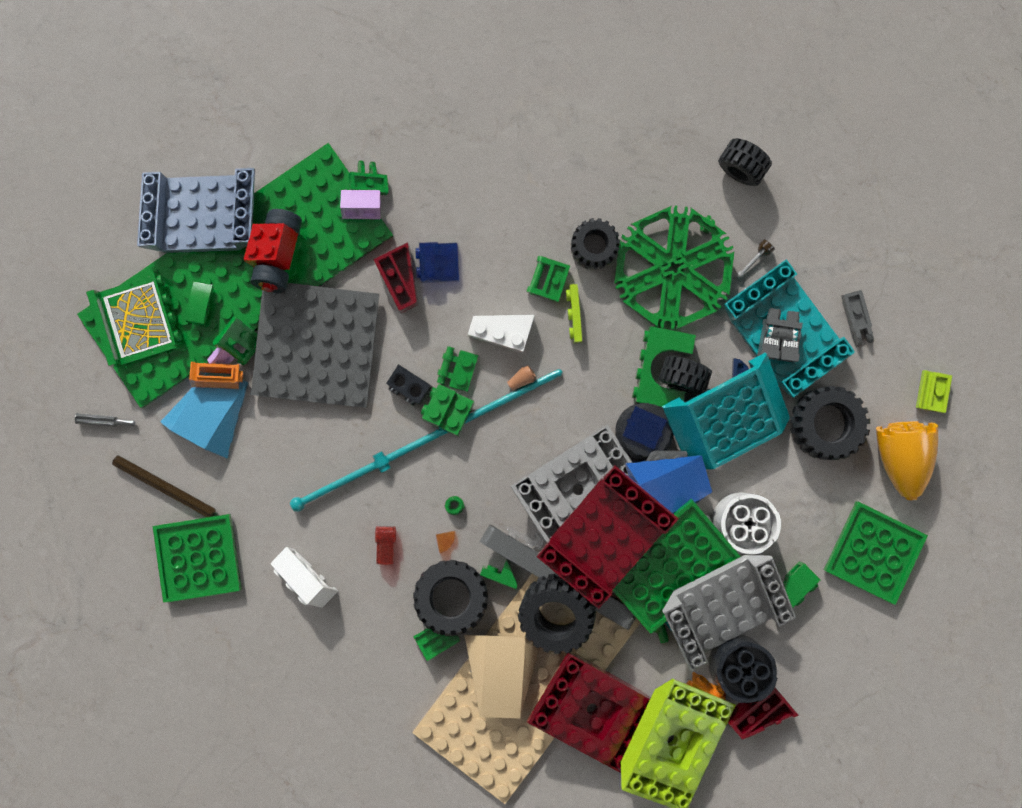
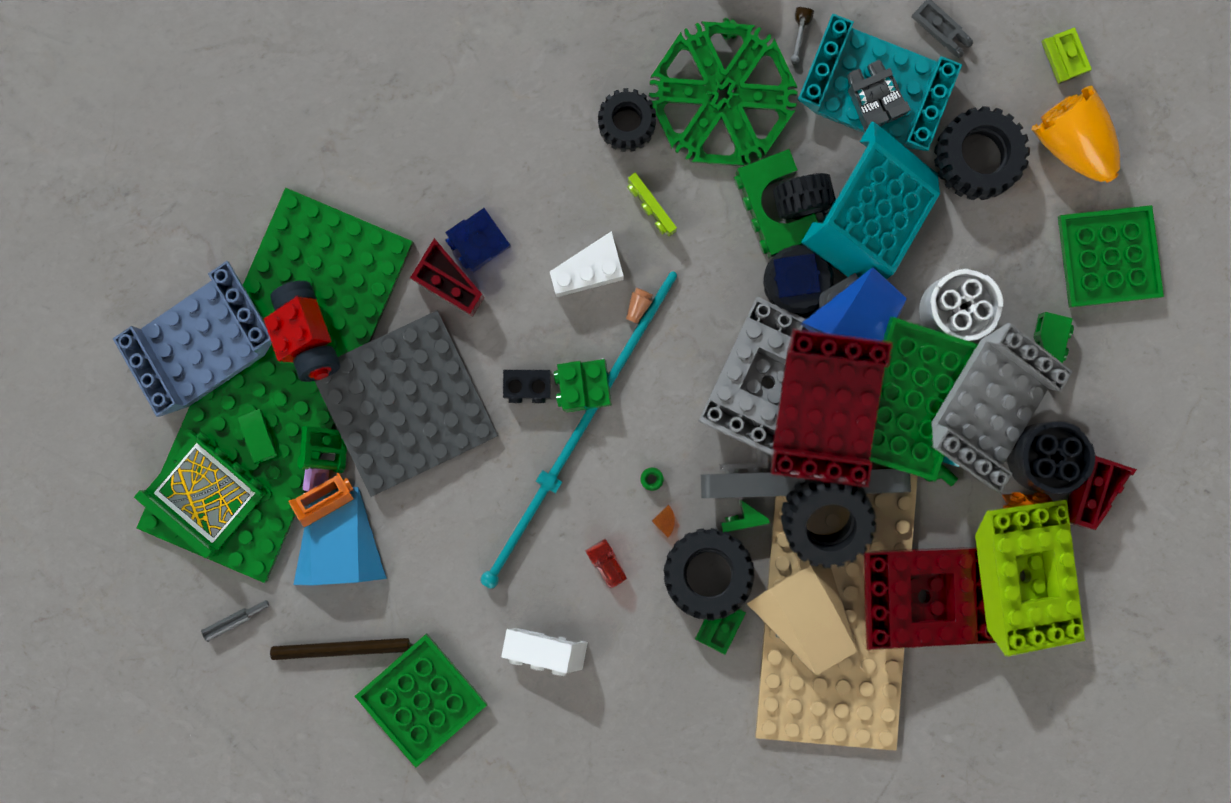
camera: 30 degrees left, 0 degrees up
(360, 204) = (360, 229): lavender hinge -> none
(368, 181) = (353, 203): green hinge -> none
(463, 369) = (573, 335): green plate -> none
(554, 281) = (609, 186): green plate -> none
(738, 367) = (852, 155): dark blue tile -> none

